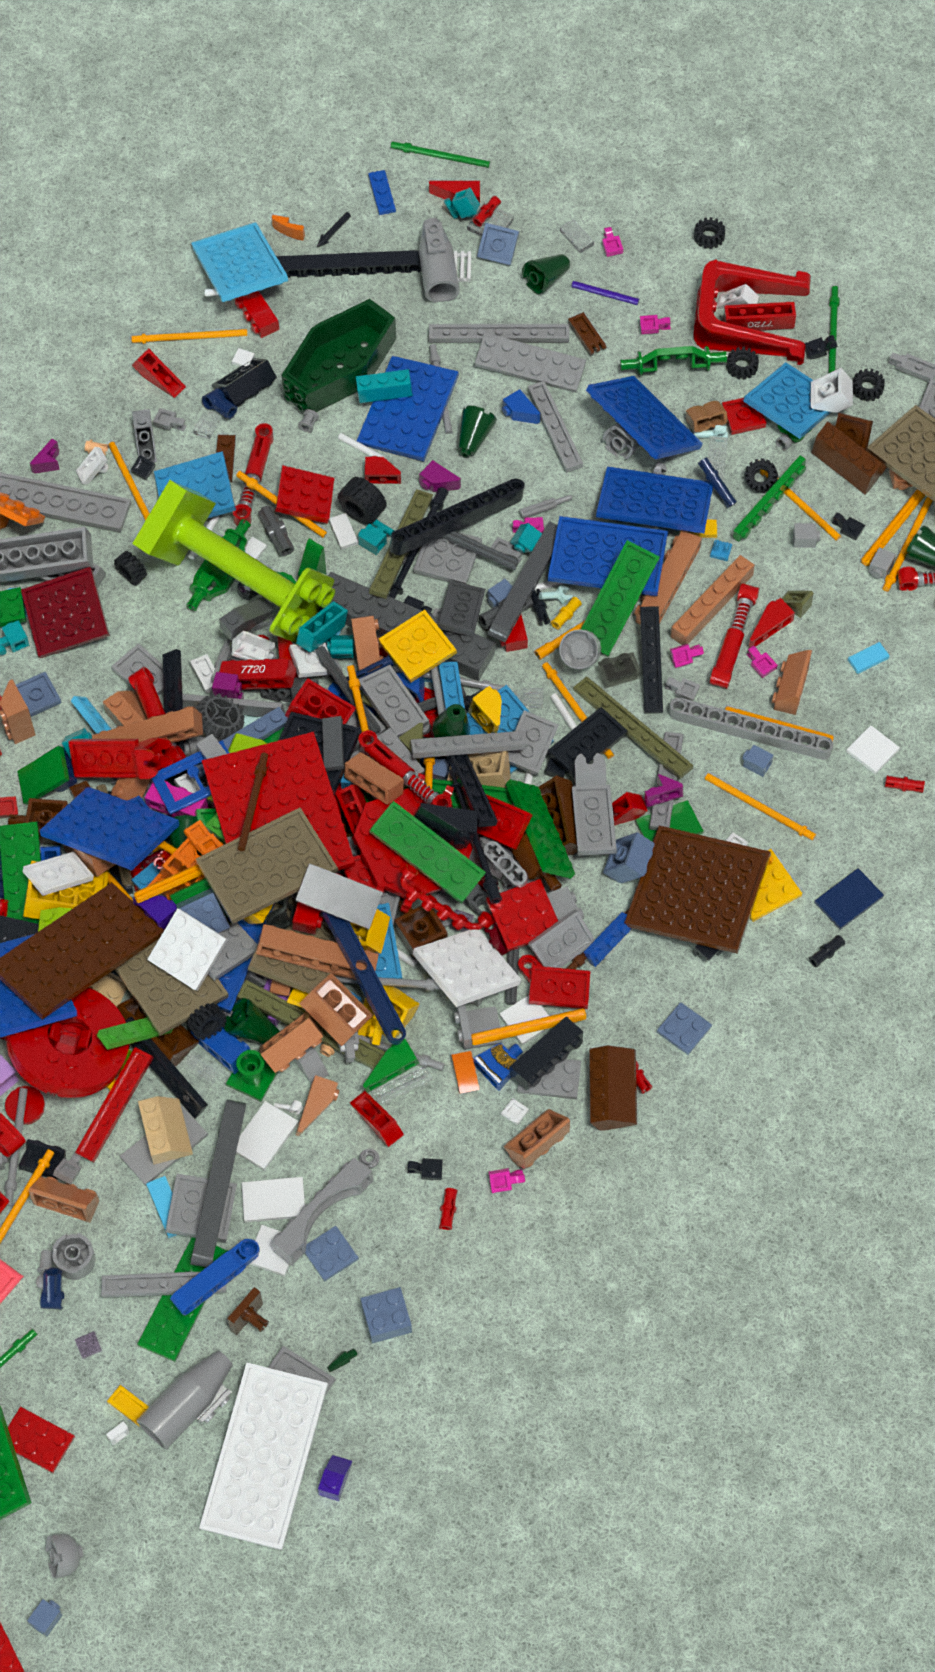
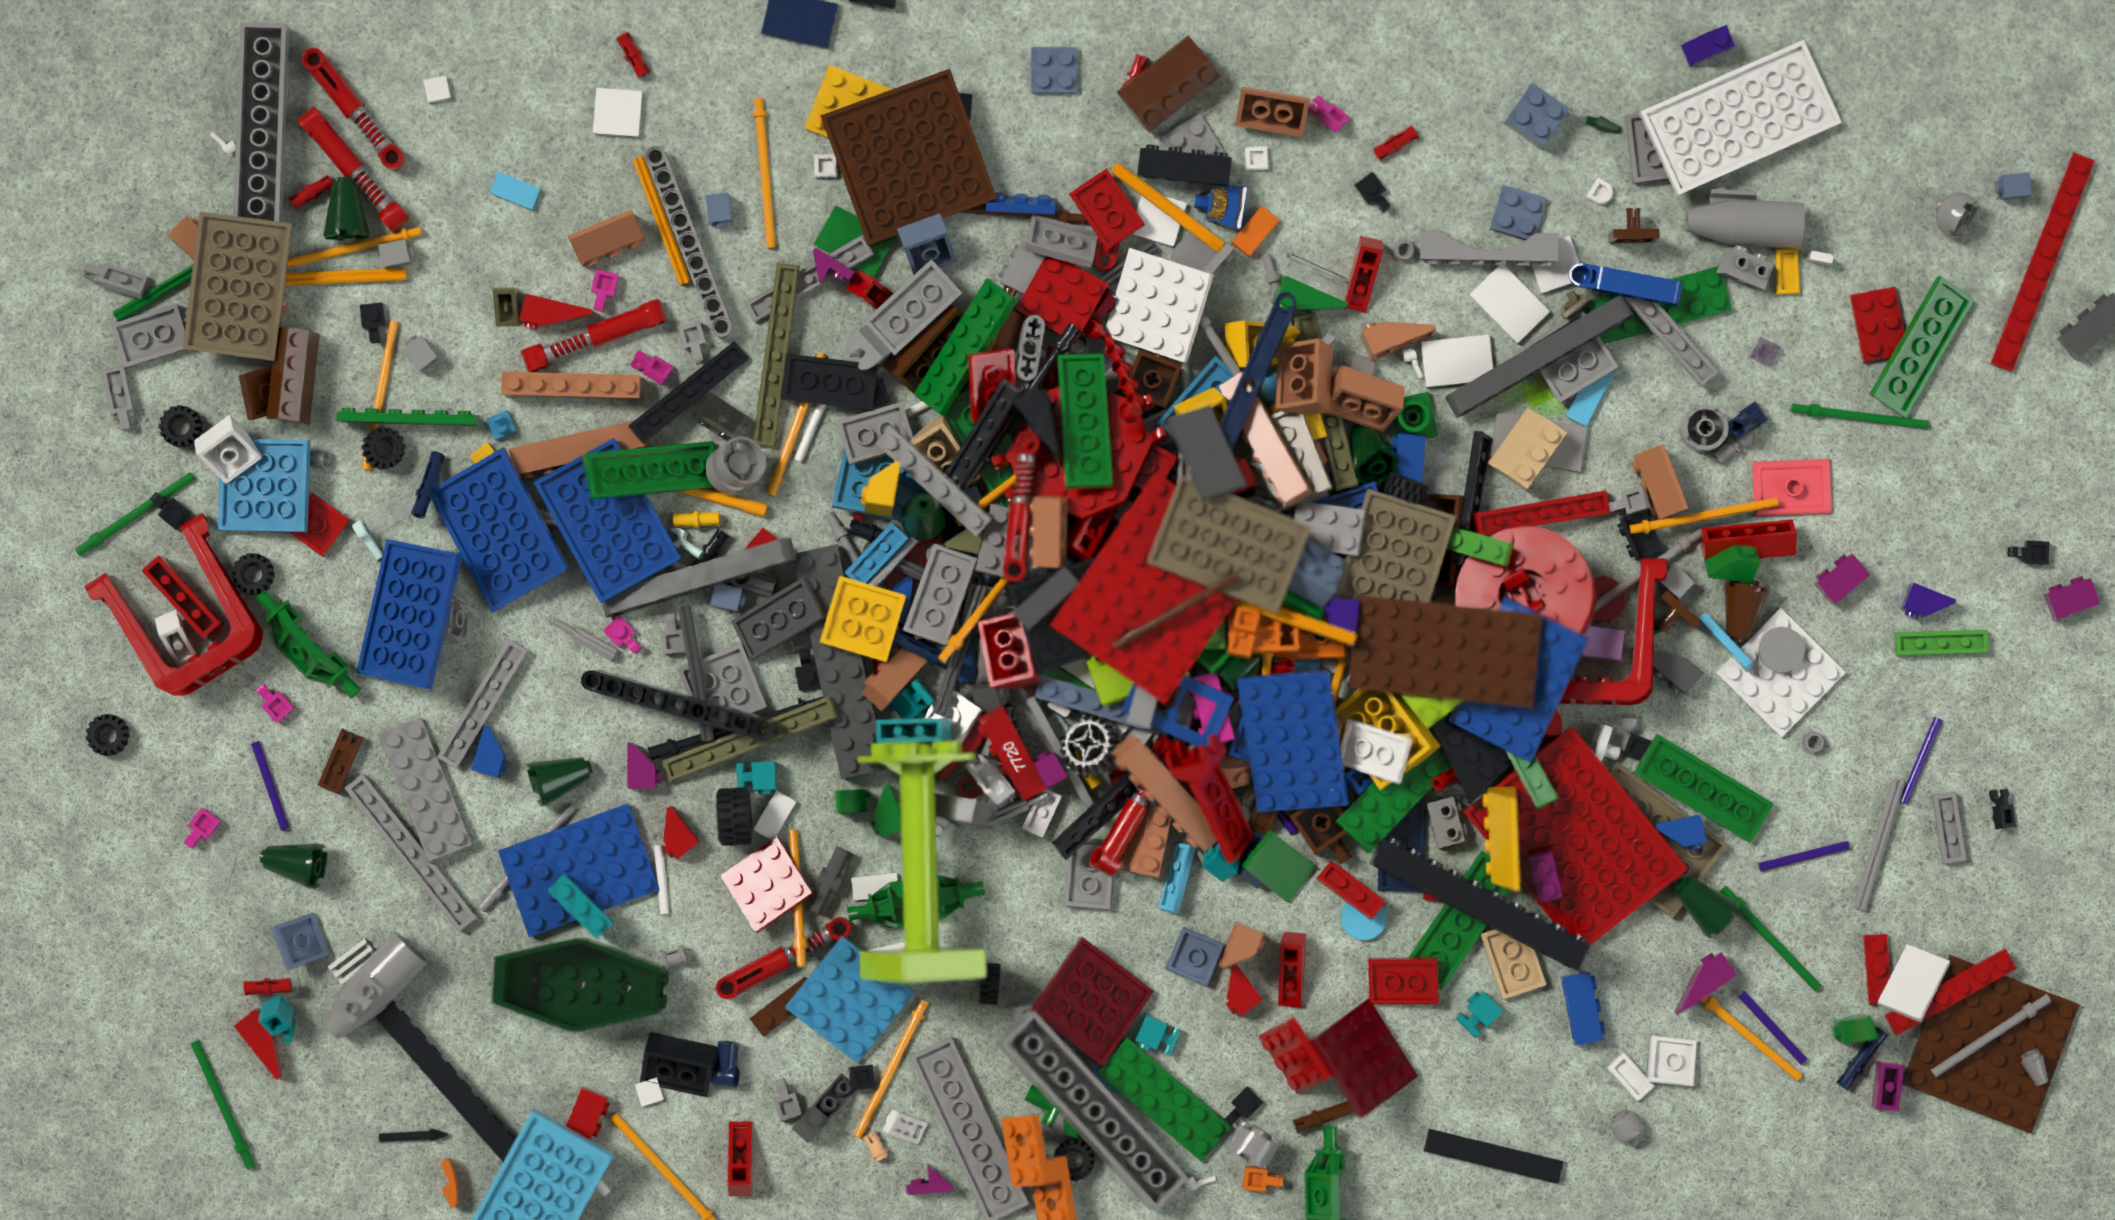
camera: 135 degrees left, 25 degrees up
(156, 1373) = (1745, 268): none -> light grey brick
(187, 949) = (1362, 553): white plate -> none
(196, 1165) = (1536, 393): none -> clear neon green panel
(233, 1233) = (1574, 305): none -> dark tan piece
(296, 1321) = (1600, 192): none -> white tile
(382, 192) = (322, 1125): blue plate -> none
(525, 538) = (648, 621): teal brick -> none
(706, 416) = (352, 558): medium nougat brick -> none

